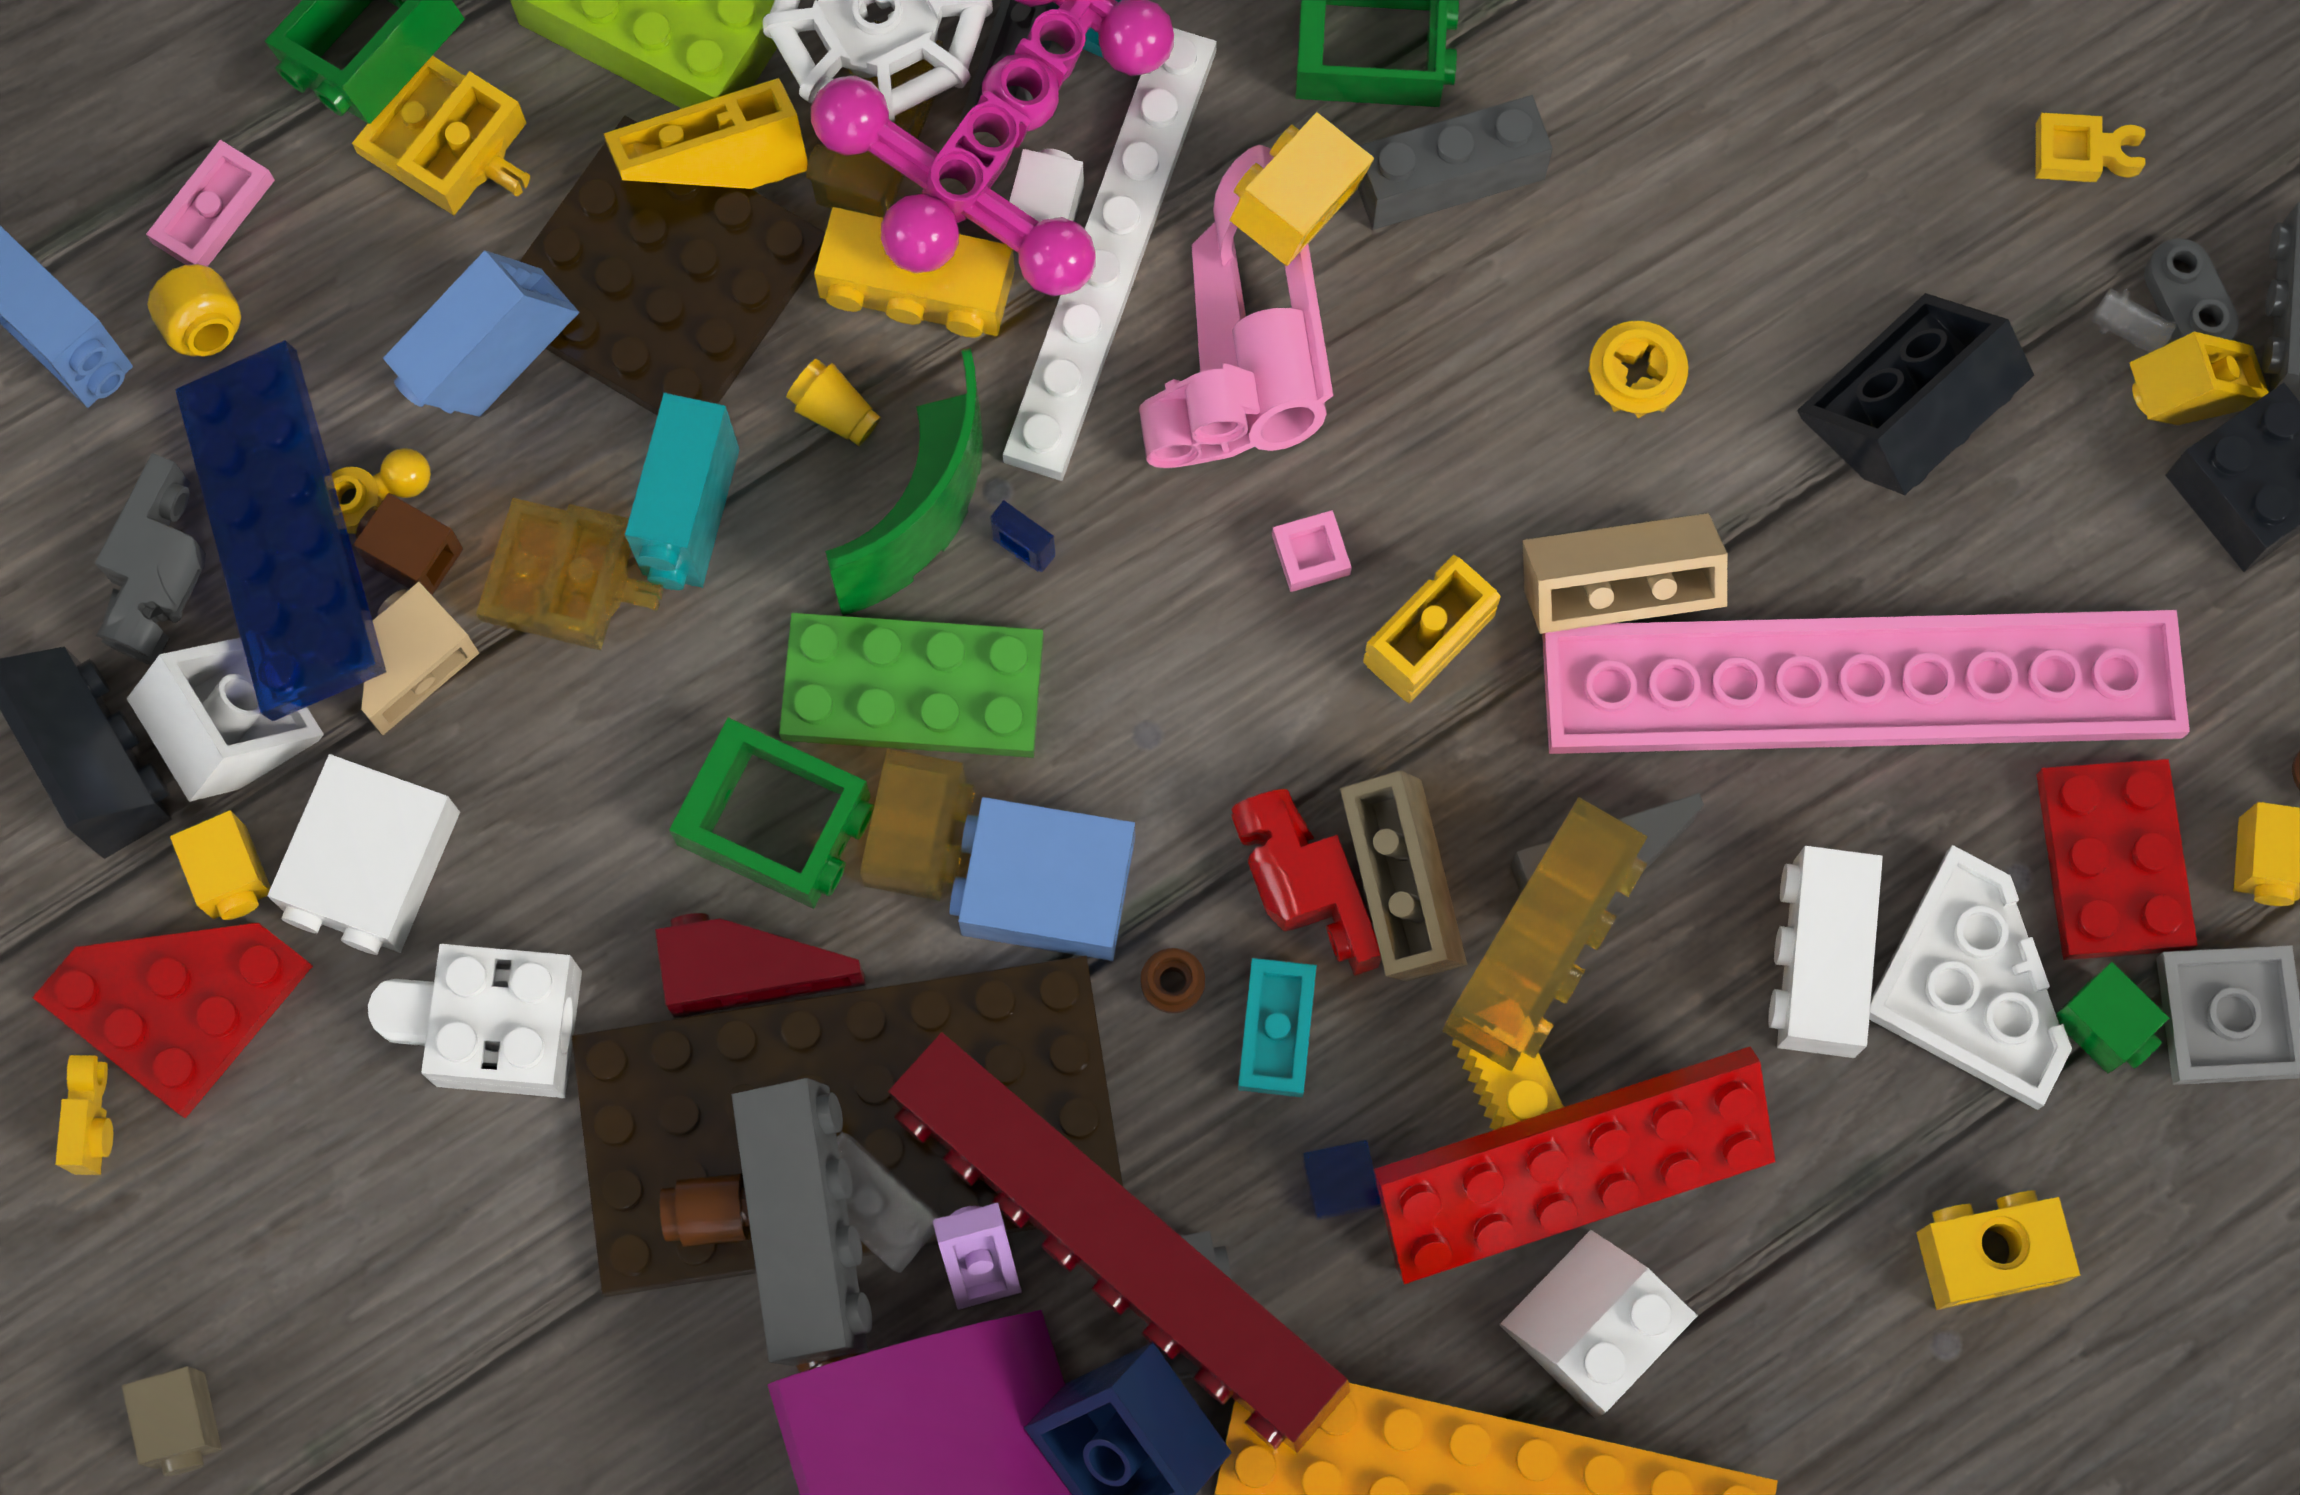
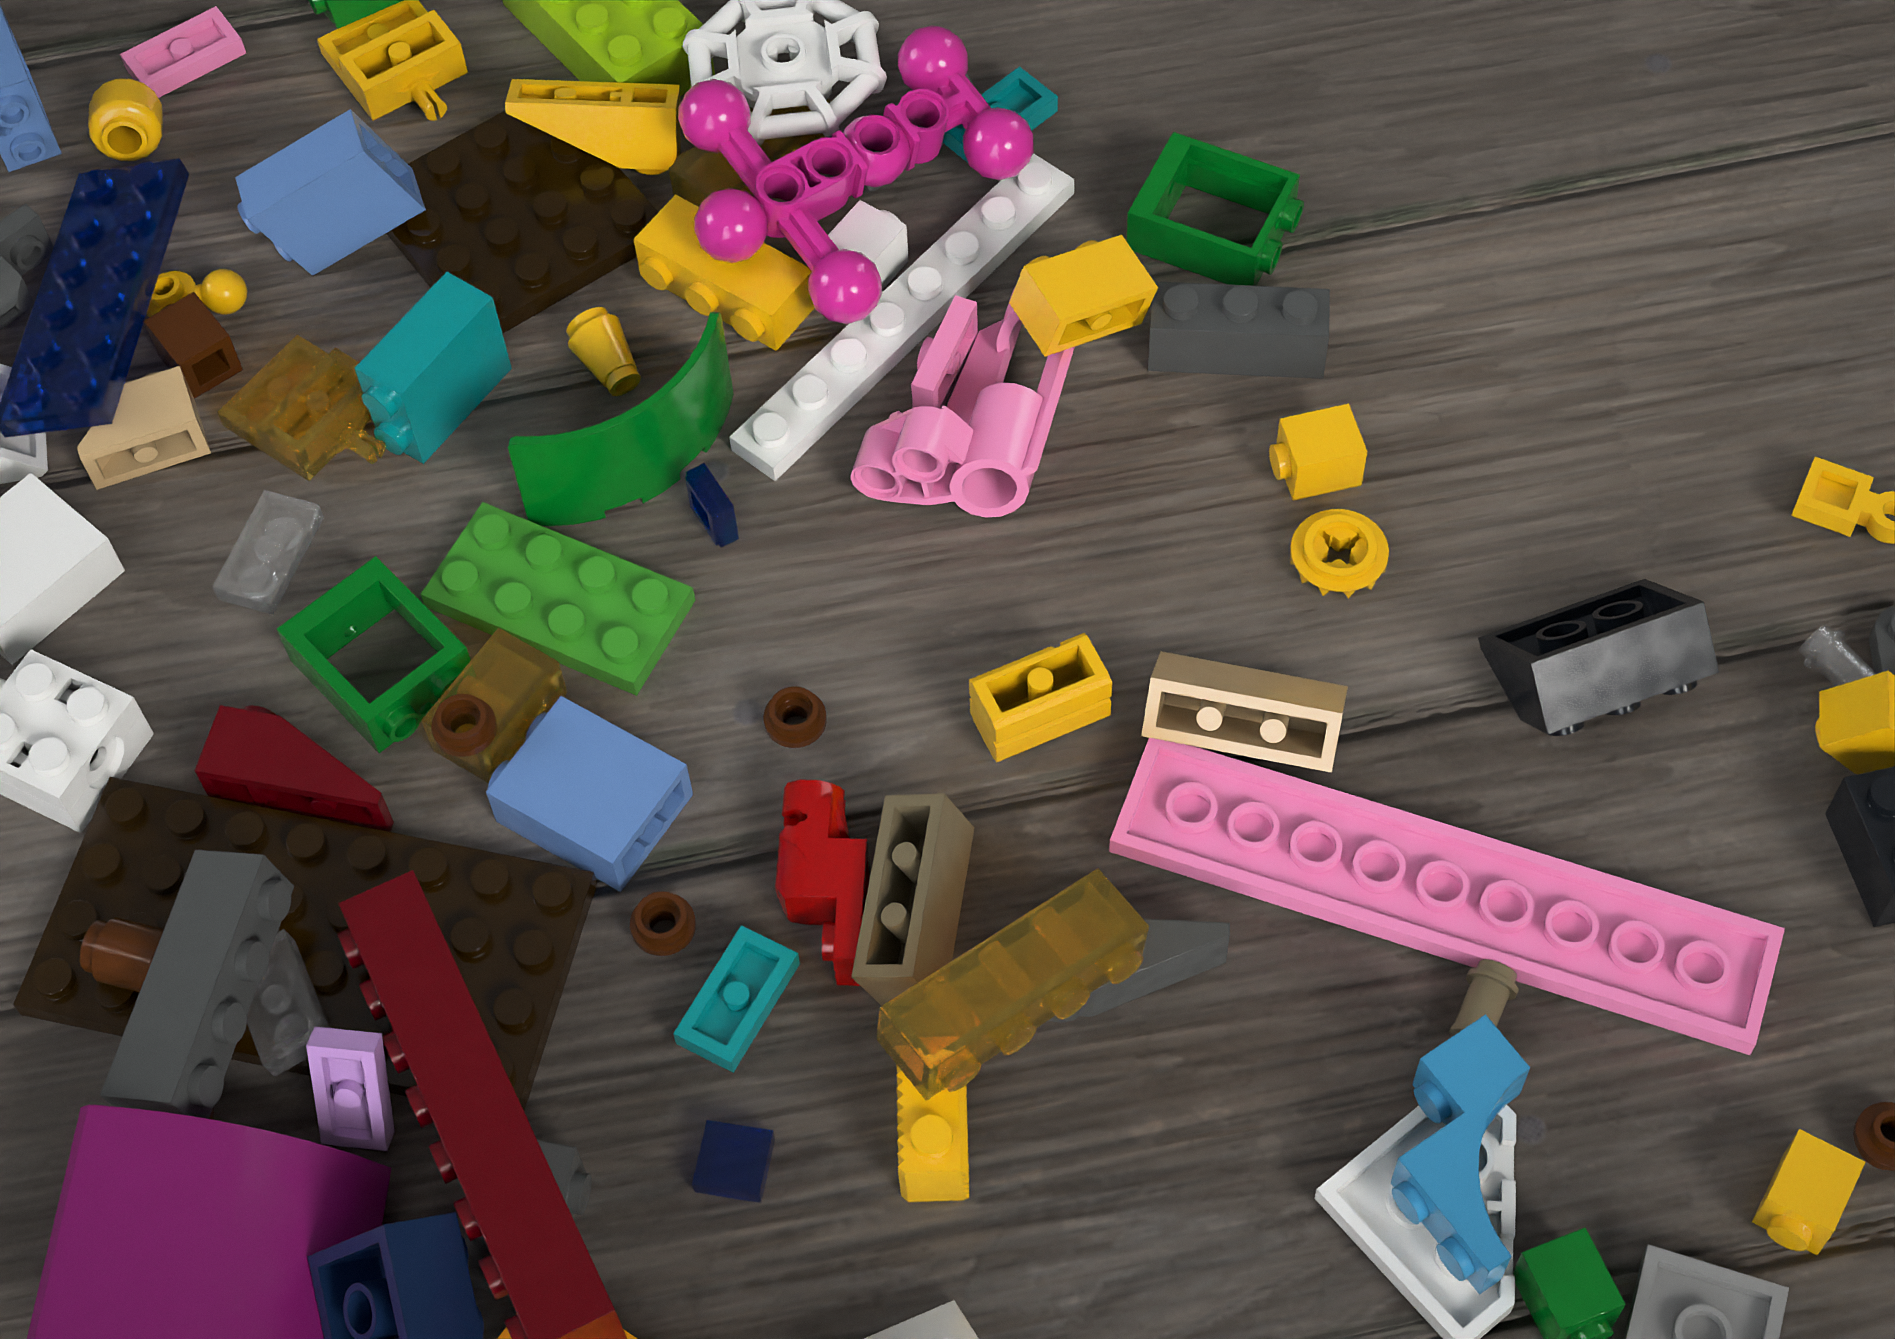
camera: 25 degrees right, 15 degrees down
(604, 744) = (268, 552): none -> clear plate
(907, 847) = (462, 710): none -> reddish brown plate
(1174, 295) = (945, 354): none -> bright pink plate
(1204, 710) = (790, 703): none -> reddish brown plate
(1311, 551) = (965, 603): bright pink plate -> none
(1576, 1165) = (959, 1222): red plate -> none
(1581, 269) = (1319, 452): none -> yellow brick
(1827, 951) = (1299, 1121): white brick -> none
(1941, 778) = (1488, 993): none -> dark tan pin
(1979, 968) = (1438, 1179): none -> dark azure arch
(2116, 859) = (1637, 1144): red plate -> none

